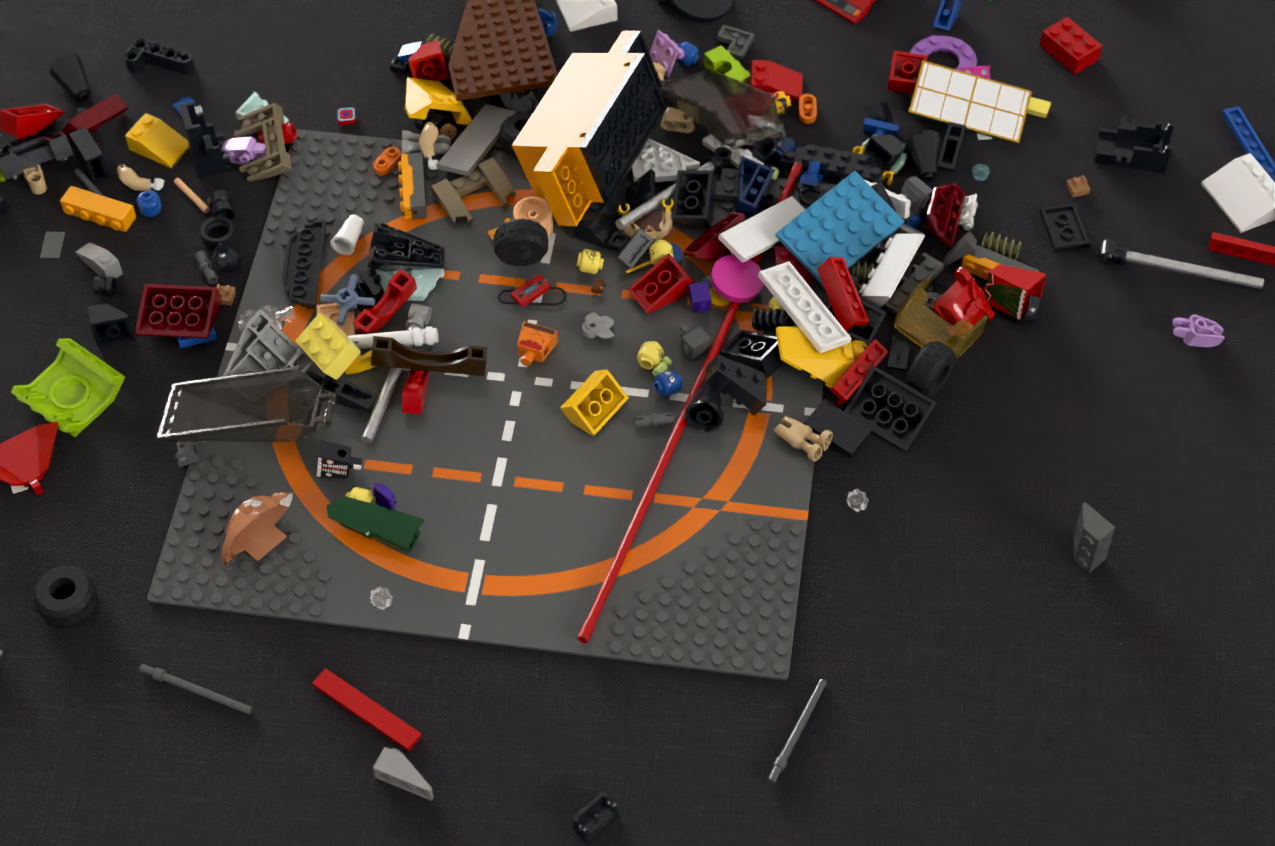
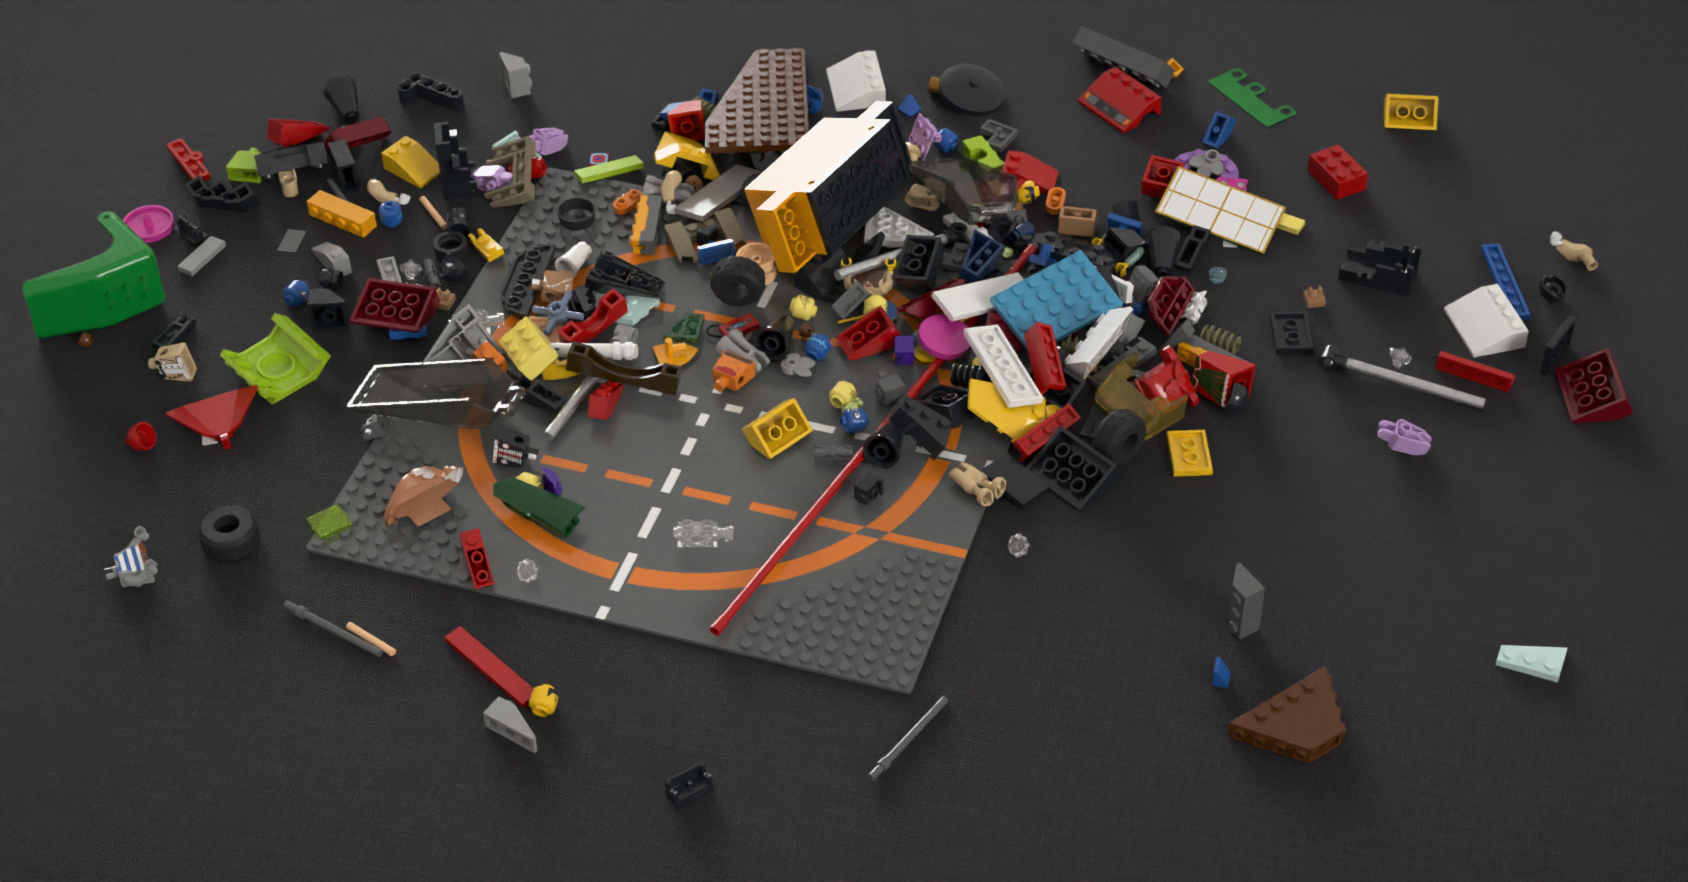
camera: 10 degrees right, 10 degrees down
(72, 306) = (296, 293): none -> blue head
(161, 269) = (388, 269): none -> light grey tile
(165, 567) = (329, 522): none -> clear neon green piece
(183, 265) = (410, 269): none -> clear piece
(237, 695) = (370, 638): none -> light nougat bar
(241, 29) = (515, 75): none -> light grey slope
(254, 228) = (486, 245): none -> yellow hinge
(286, 358) = (487, 351): none -> orange torso
(291, 99) = (549, 140): none -> lavender hinge
(326, 592) = (476, 558): none -> red slope
(335, 169) = (576, 203): none -> black tyre
(336, 268) = (553, 285): none -> medium nougat torso
(359, 125) = (608, 169): none -> lime tile
(429, 742) = (543, 700): none -> yellow head
(440, 29) = (709, 95): none -> blue slope
(471, 329) = (674, 353): none -> light orange shield
(476, 191) = (707, 234): none -> black slope
(479, 300) = (687, 329): none -> clear green wing
(488, 208) = (715, 251): none -> blue tile
(544, 534) = (701, 533): none -> clear brick
(552, 321) = (734, 341): none -> light grey piece
(571, 300) = (775, 337): none -> black cone
(614, 304) = (817, 347): none -> blue head
(641, 19) = (909, 106): none -> blue slope
(699, 457) = (868, 488): none -> black brick
(835, 130) = (1077, 221): none -> medium nougat slope
(944, 53) = (1206, 165): none -> light grey plate
(997, 373) = (1189, 453): none -> yellow tile
(1081, 616) = (1221, 674): none -> blue slope
(1166, 658) = (1295, 722): none -> reddish brown piece
(1173, 243) = (1399, 357): none -> clear piece

